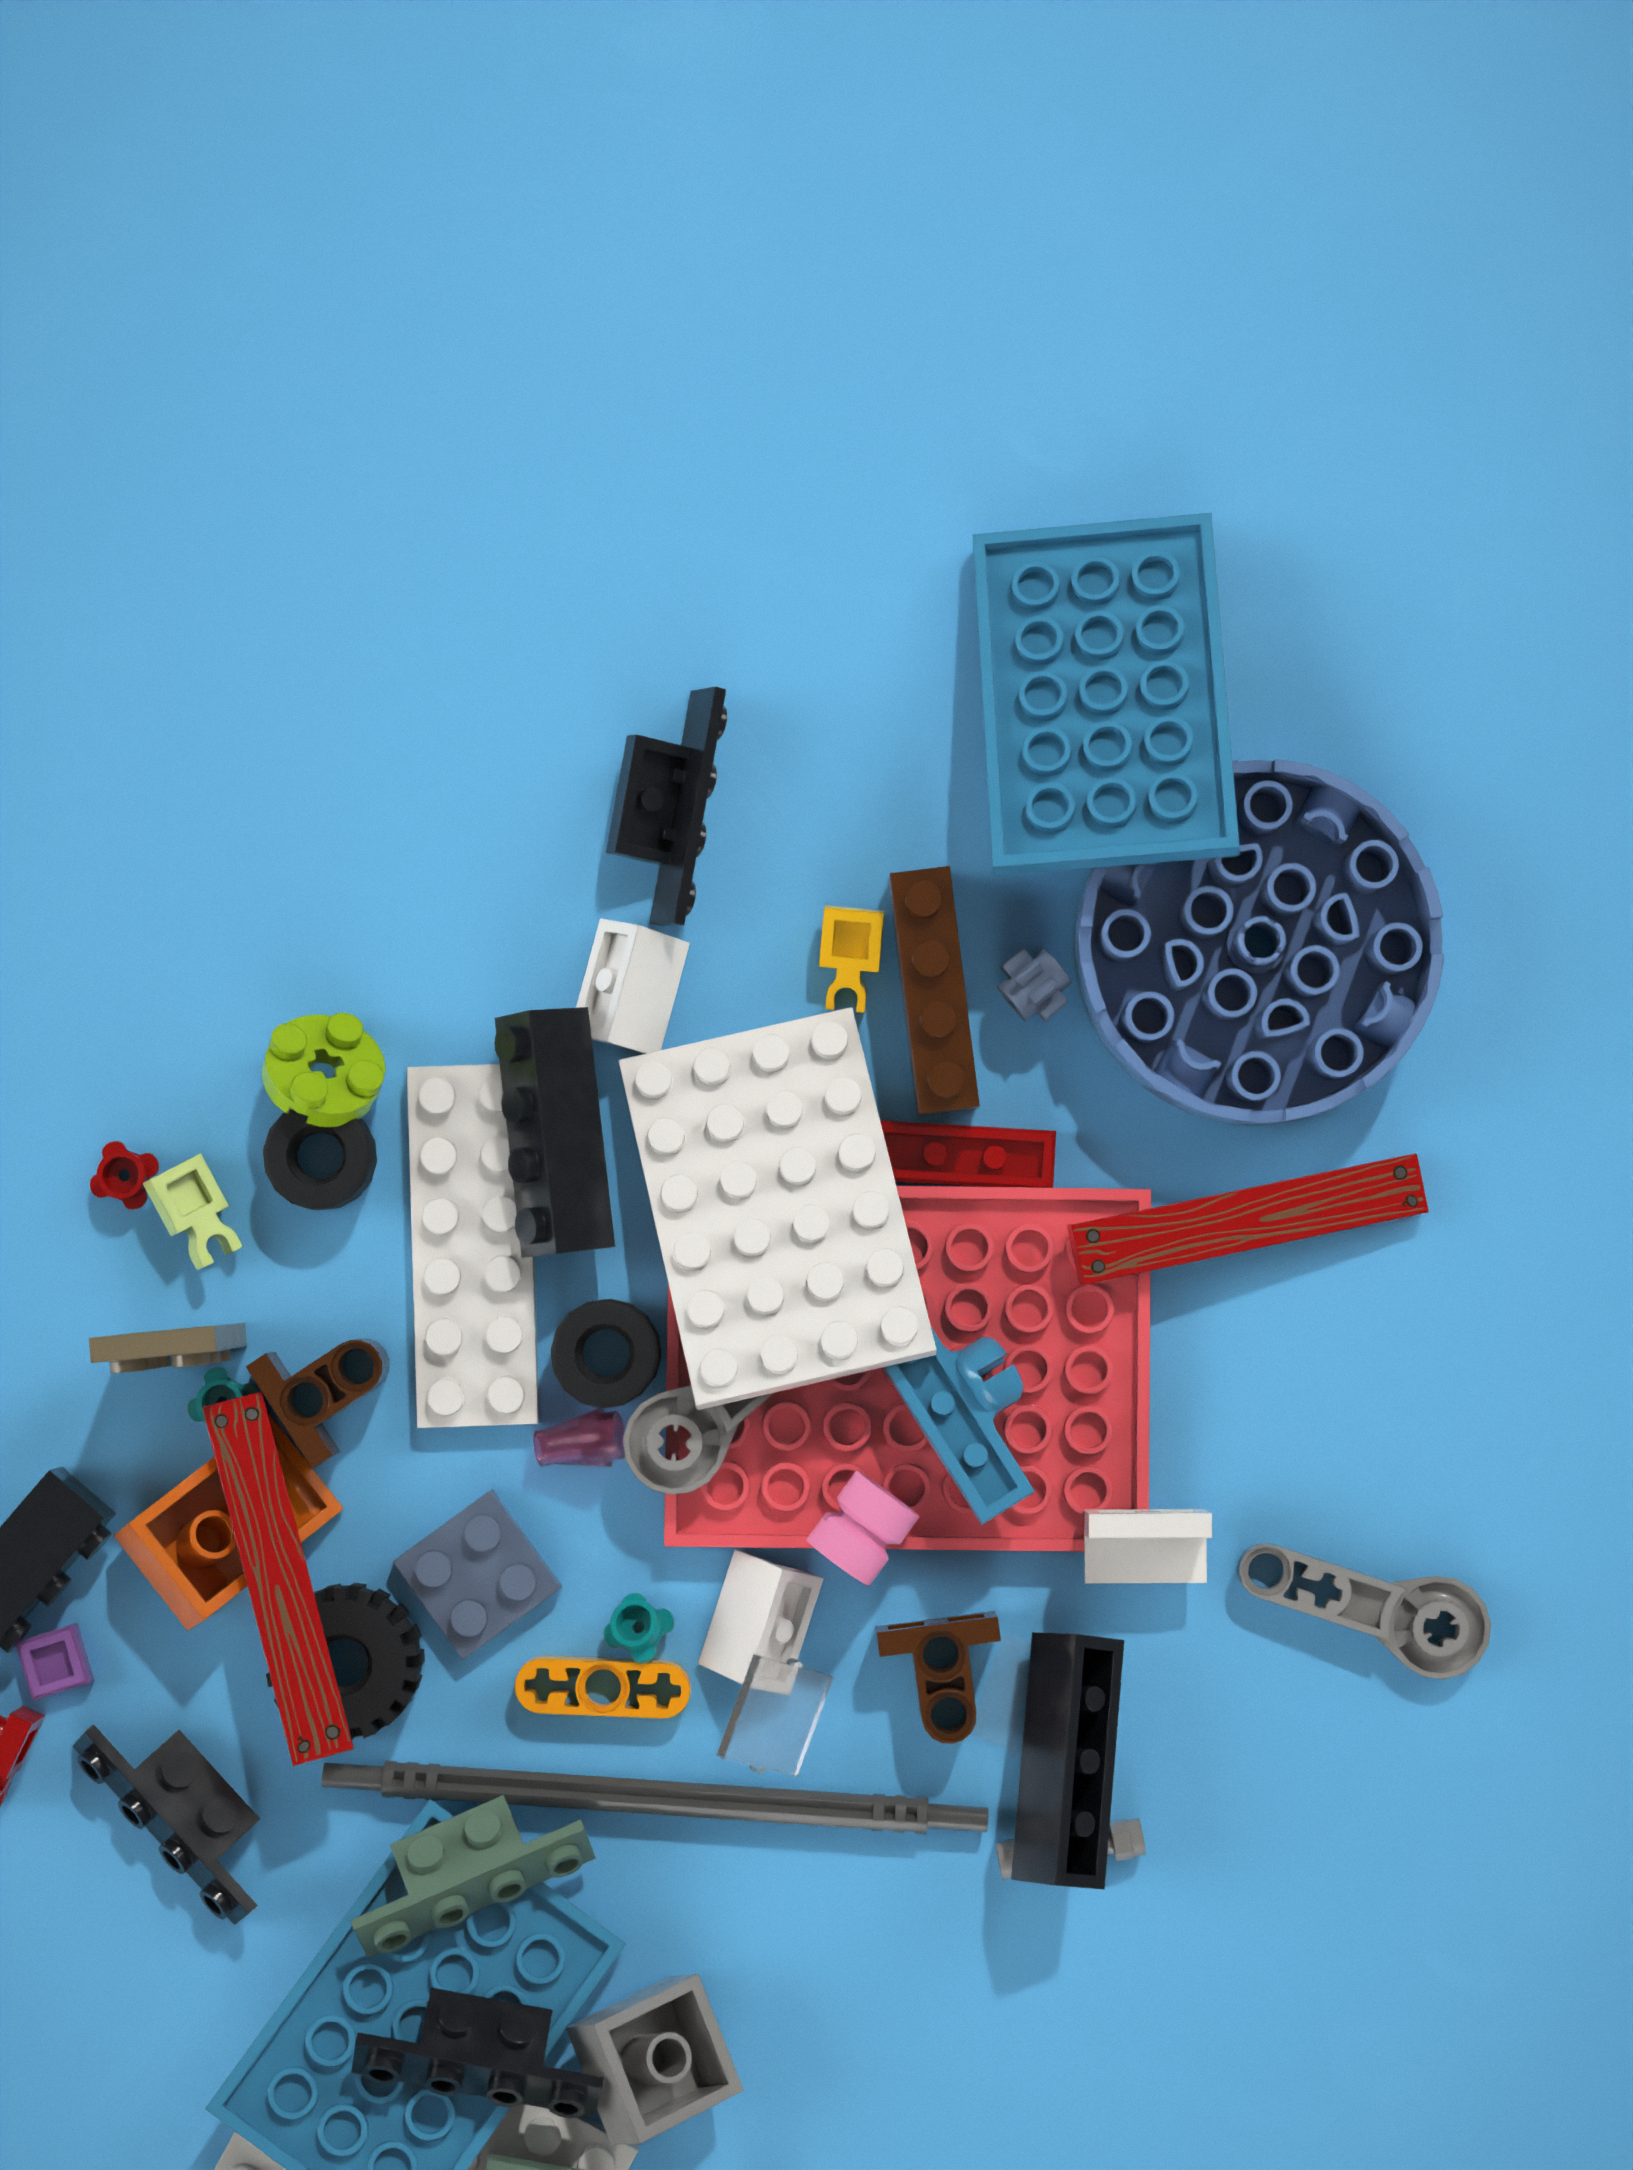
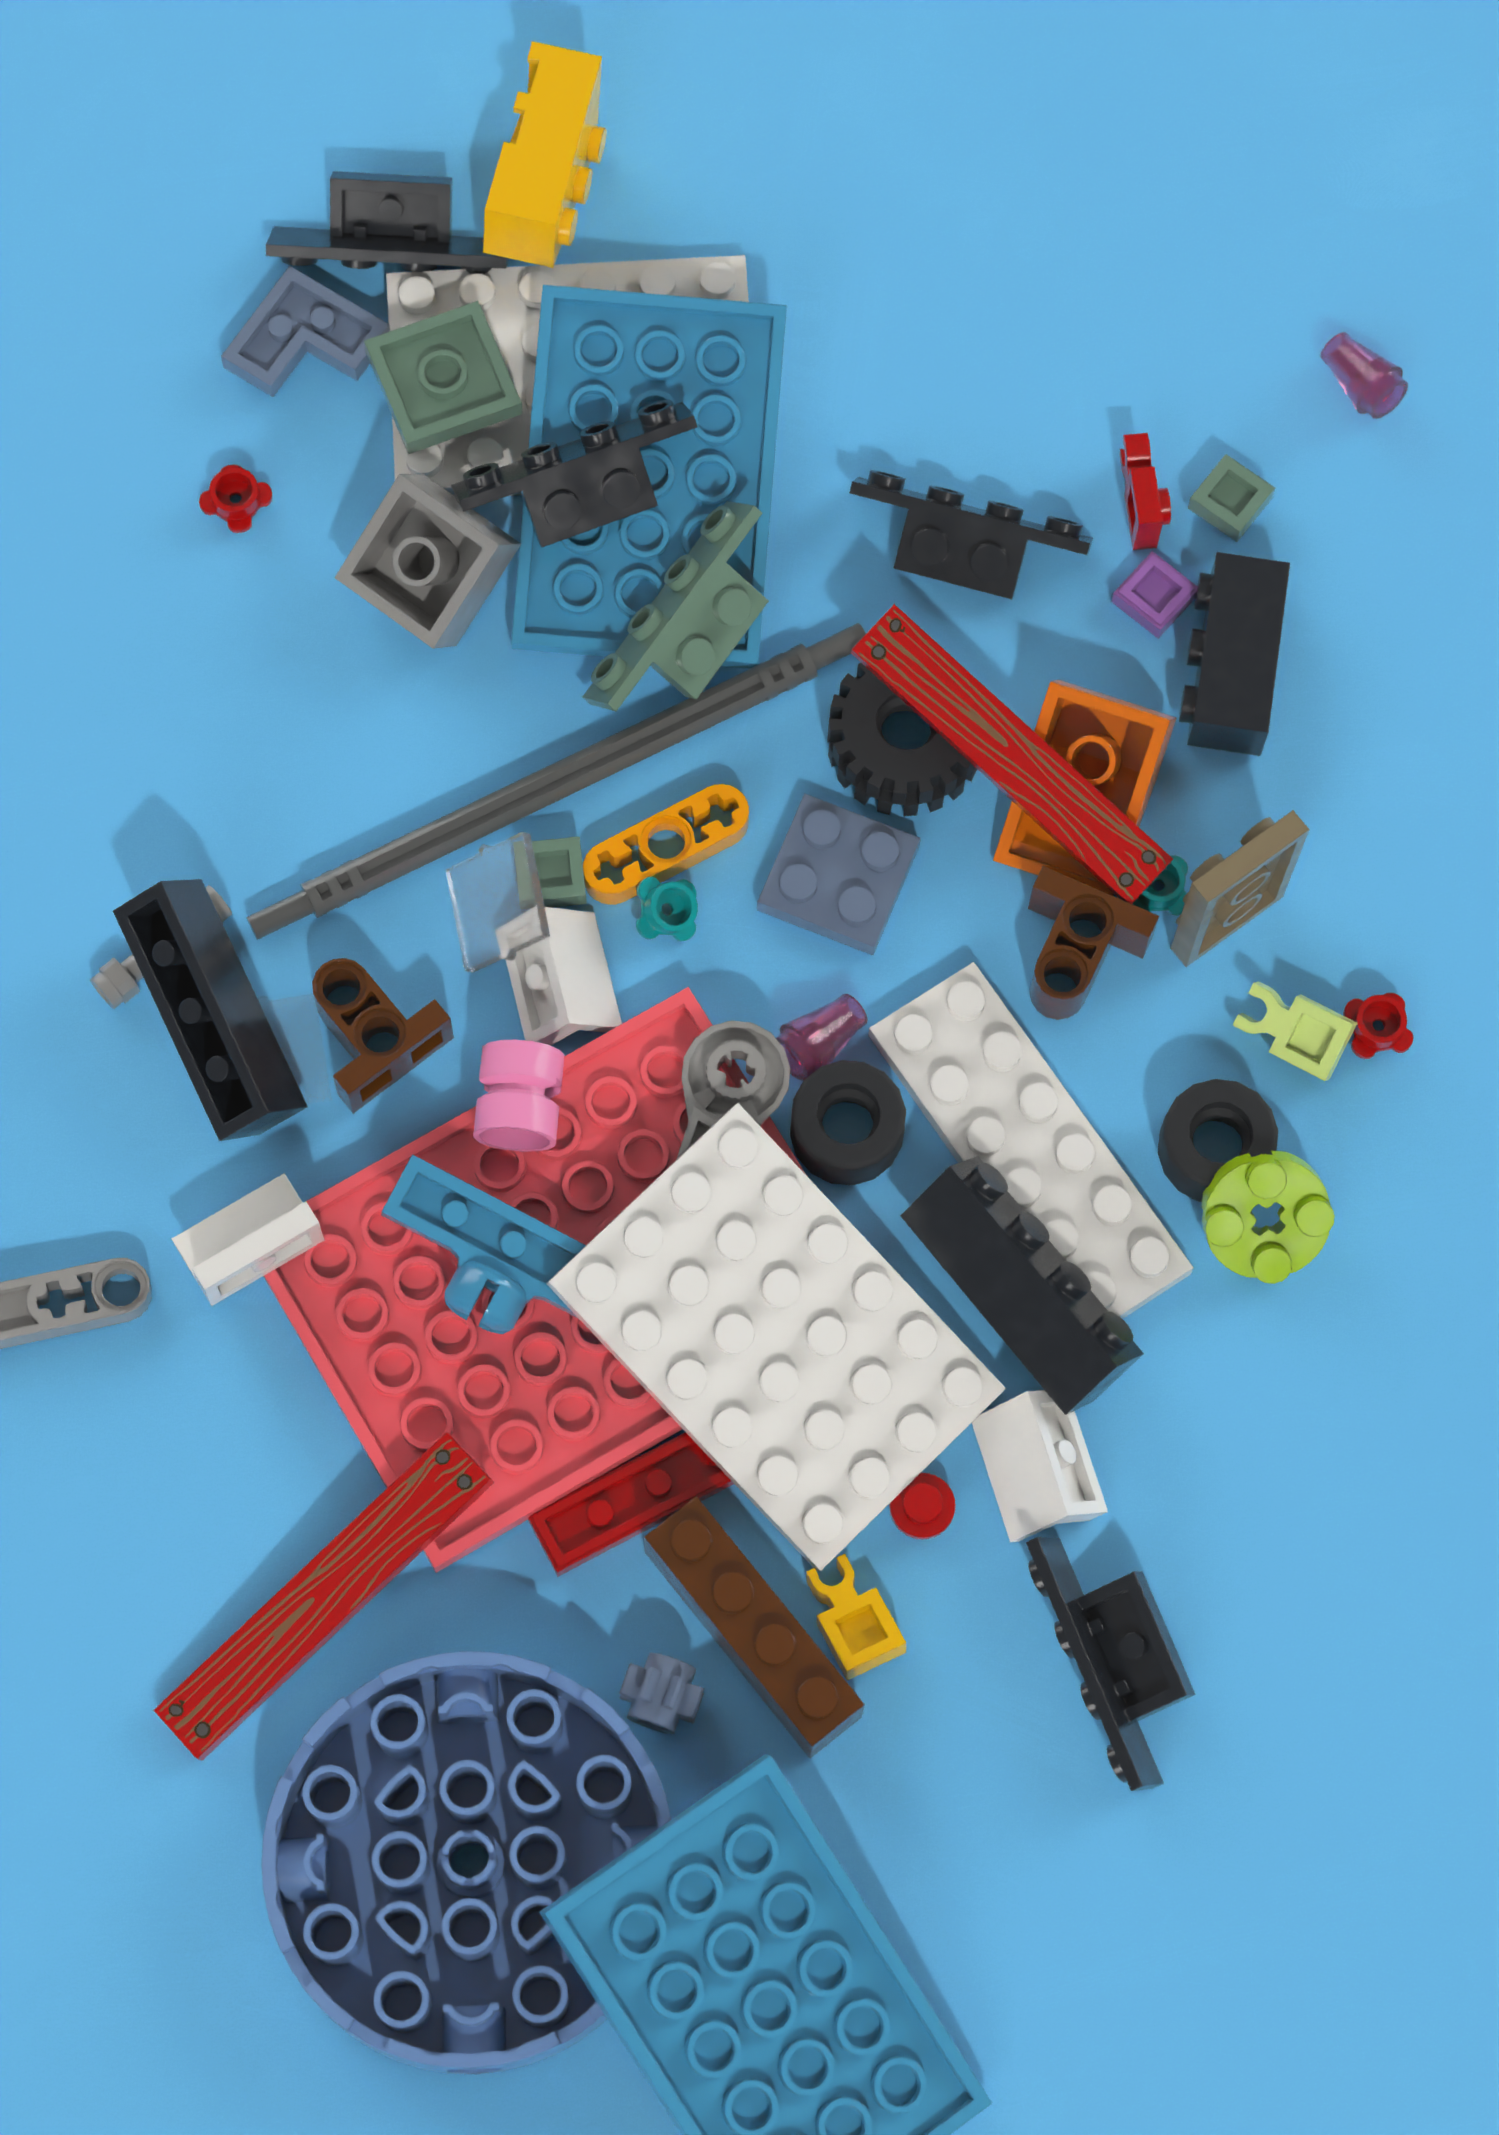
camera: 150 degrees right, 15 degrees down
(707, 1714) = (560, 871): none -> sand green plate
(740, 1007) = (923, 1507): none -> red plate

